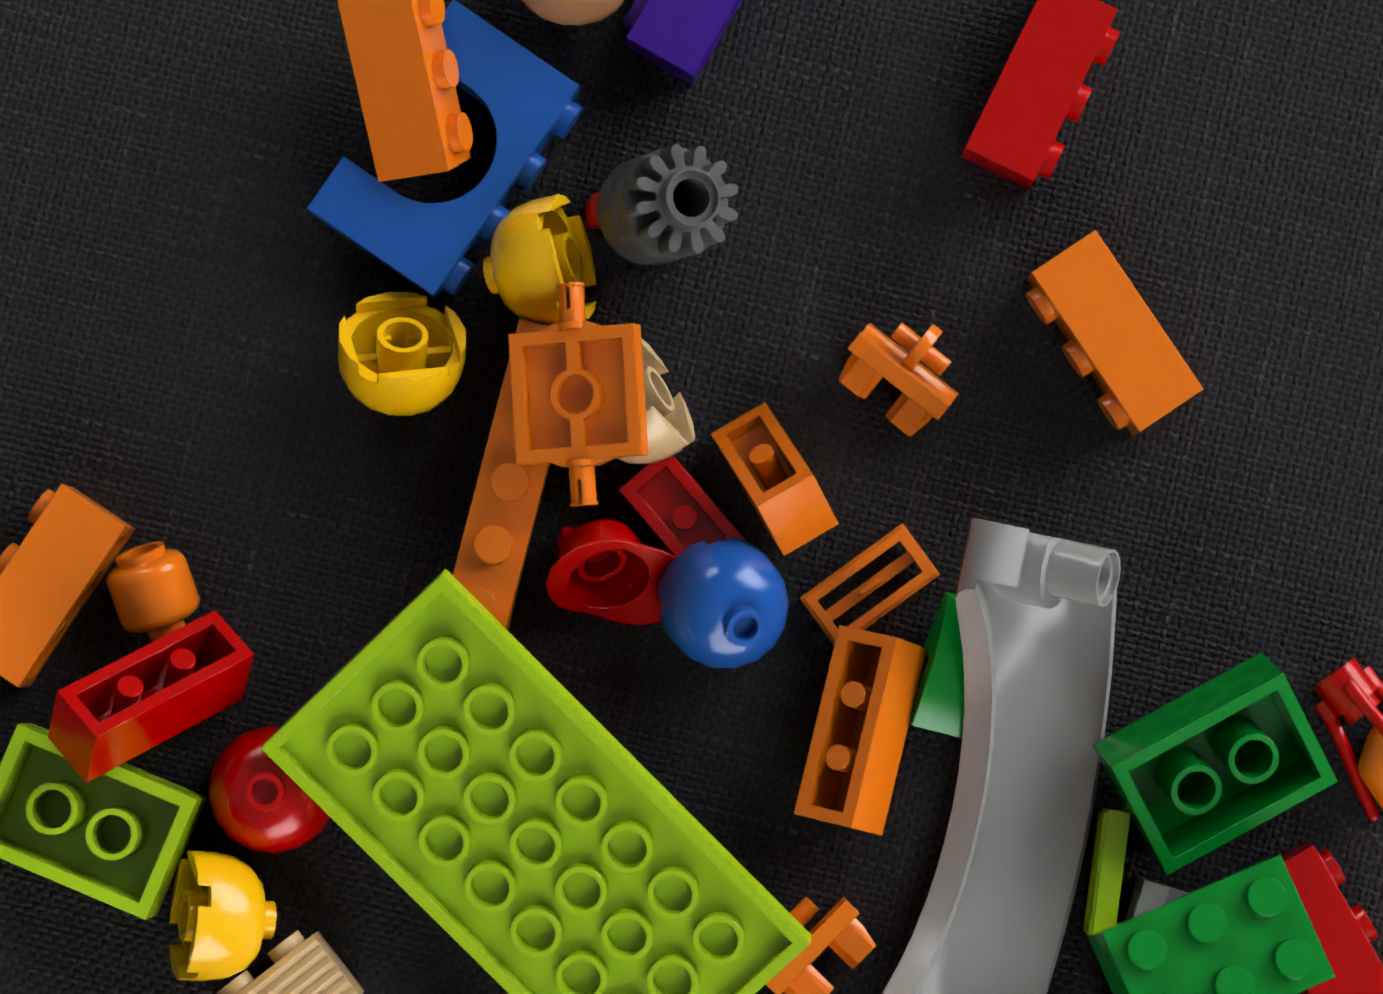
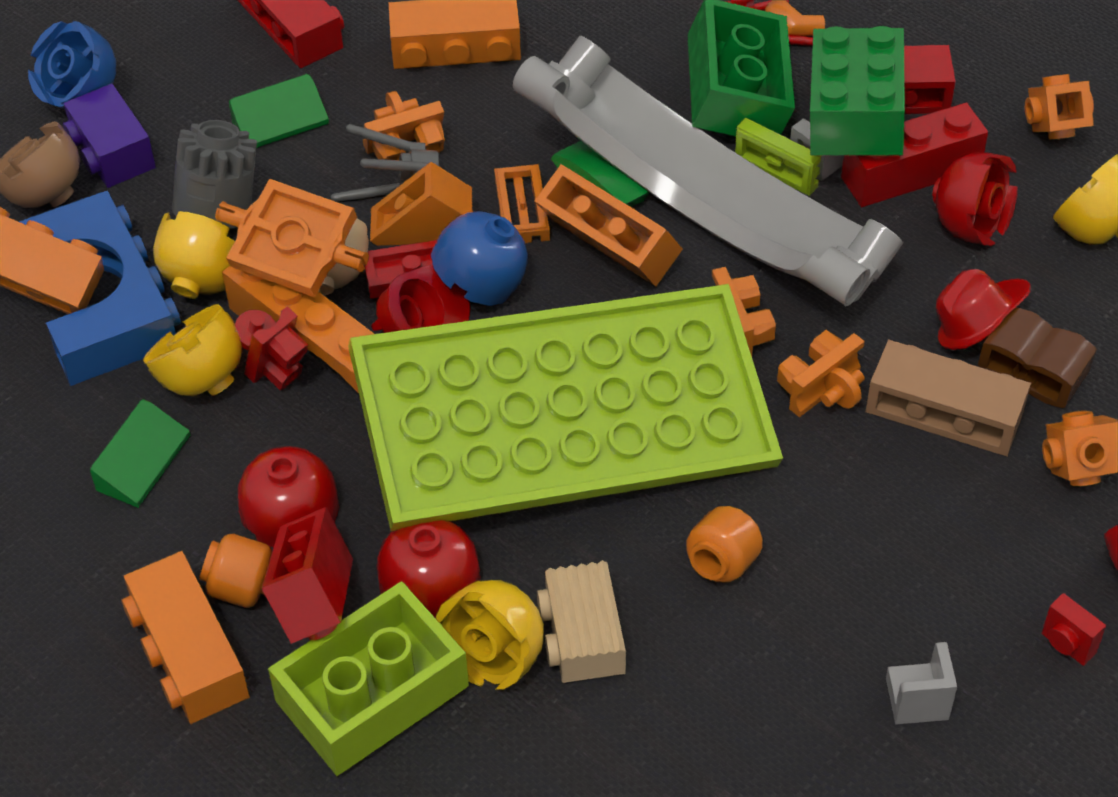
camera: 65 degrees left, 35 degrees down
(251, 373) = (138, 454): none -> green slope
(282, 577) = (282, 488): none -> red cylinder
(454, 438) = (271, 346): none -> red hips
(836, 433) = (408, 163): none -> dark grey plant
(851, 191) = (279, 110): none -> green slope

